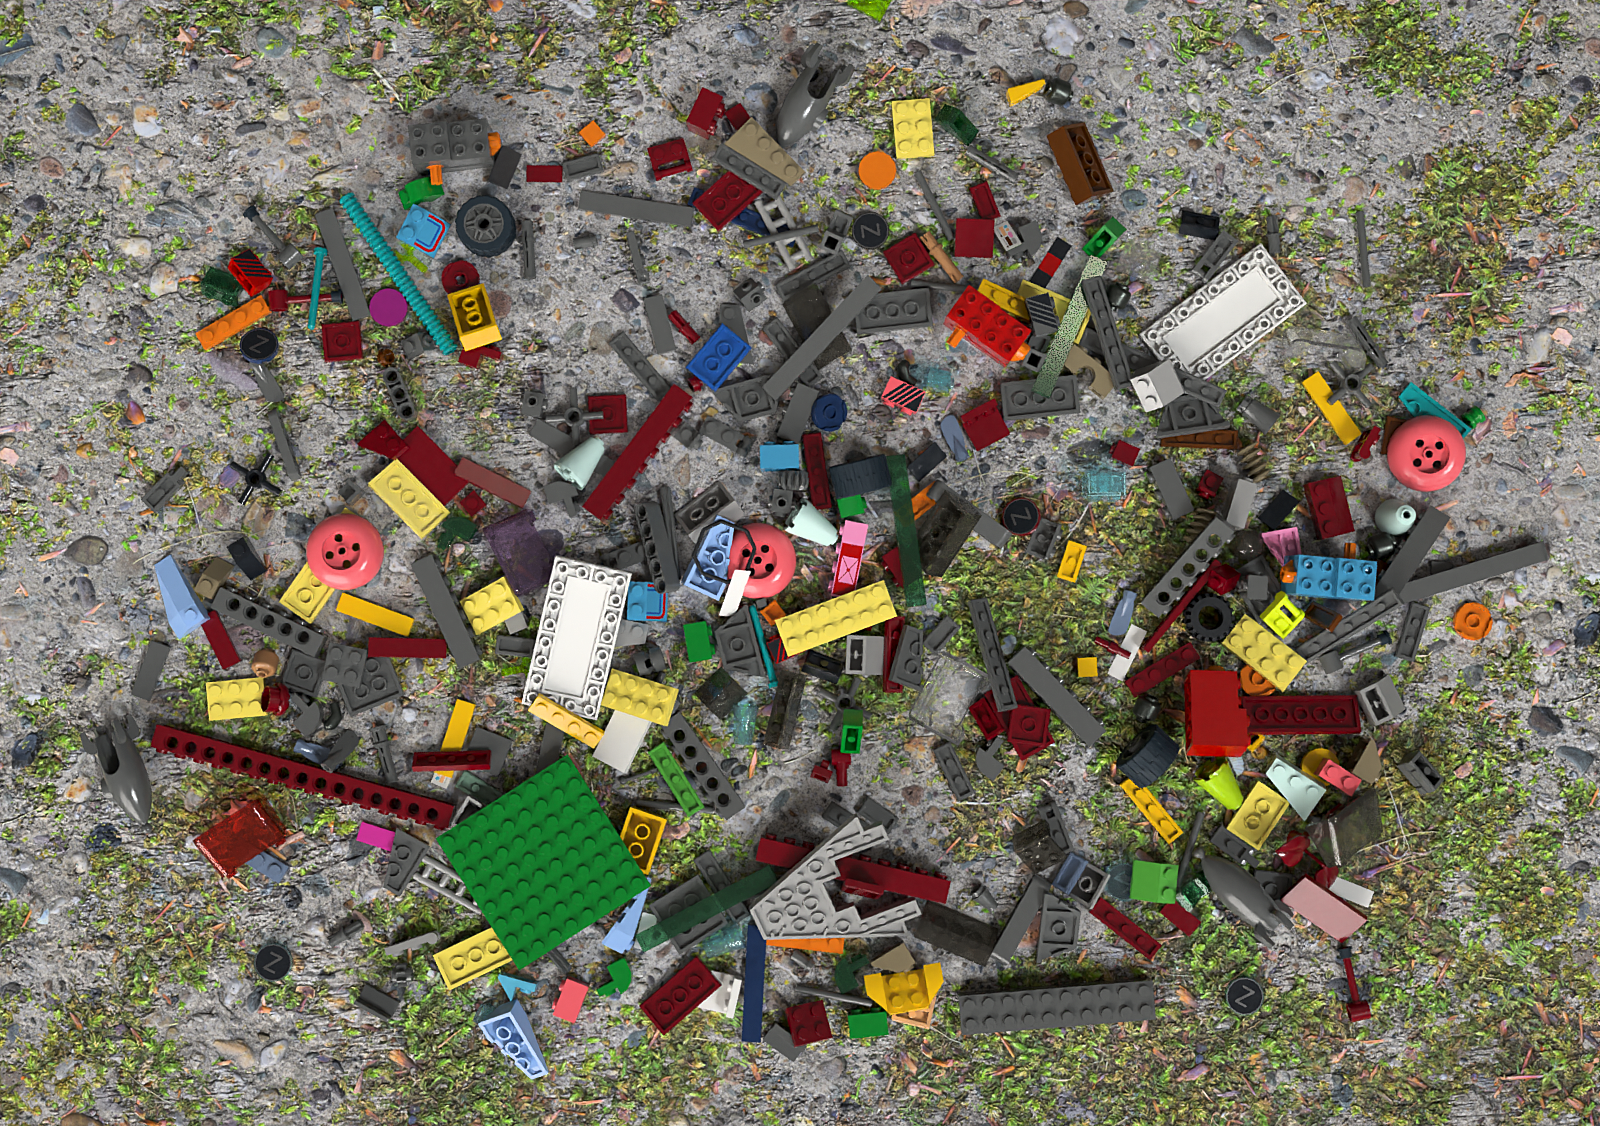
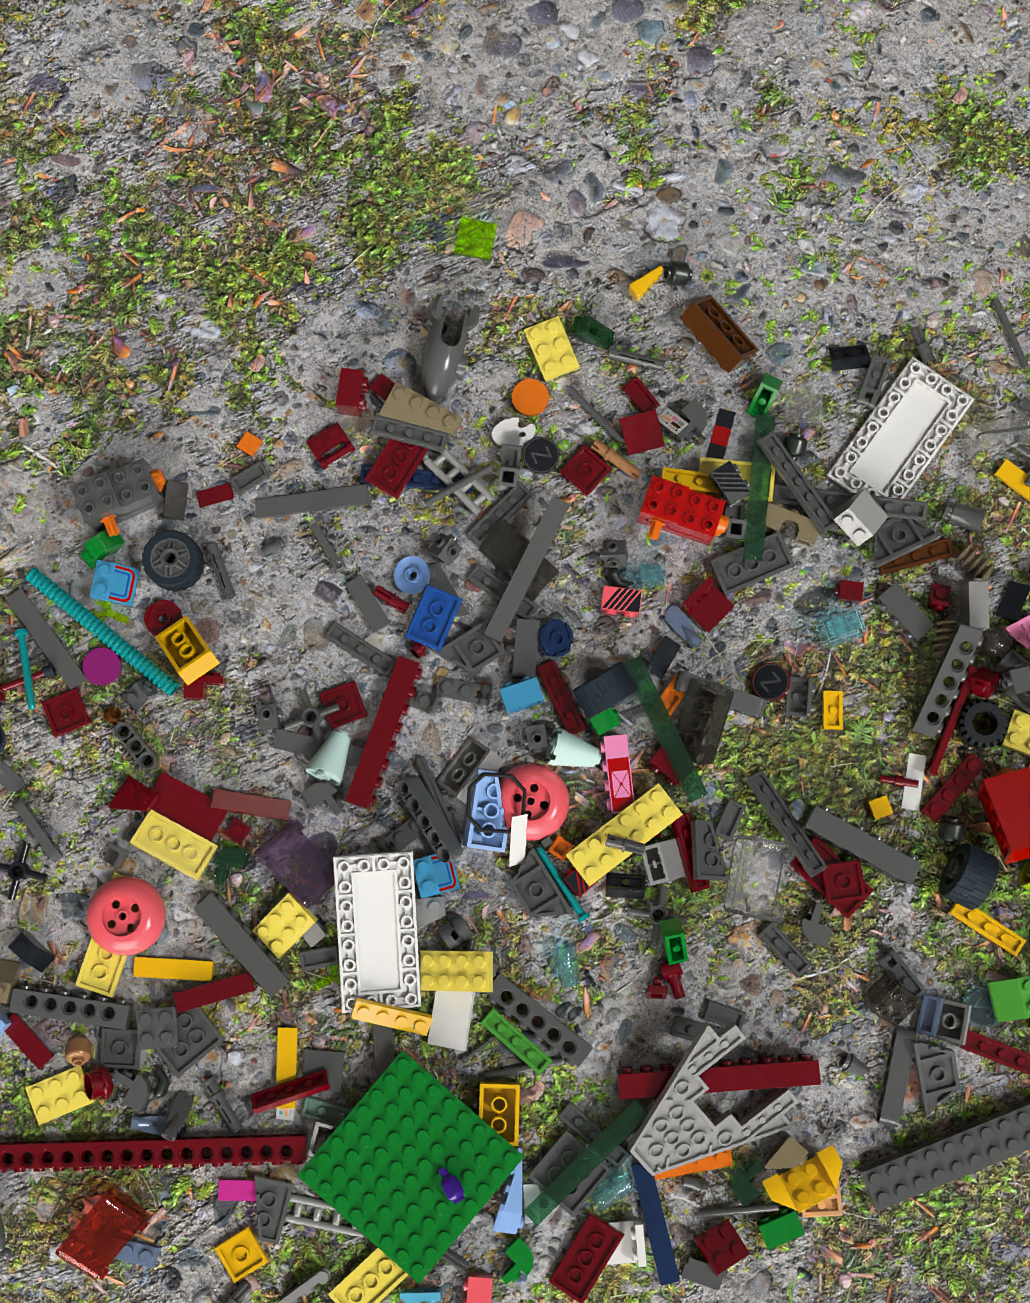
camera: 15 degrees left, 5 degrees down
(363, 895) = (241, 1254): none -> yellow tile
(575, 891) = (451, 1186): none -> dark purple plant
(698, 641) = (497, 899): green brick -> none
(703, 306) = (405, 570): none -> medium blue dish
(720, 693) = (533, 942): clear smoke slope -> none
(785, 709) = (602, 939): clear smoke brick -> none
(792, 480) = (540, 713): dark grey gear -> none
(833, 628) = (625, 844): none -> dark grey axle
(846, 196) = (508, 432): none -> piece
(862, 889) = (733, 1095): dark red tile -> none
(896, 312) = (589, 524): dark grey plate -> none
(910, 348) = (614, 553): none -> dark grey brick
(938, 285) = (622, 487): dark grey bar -> none
(956, 932) = (838, 1109): clear smoke slope -> none
(986, 719) = (800, 888): dark red plate -> none
(1122, 613) = (897, 745): sand blue piece -> none

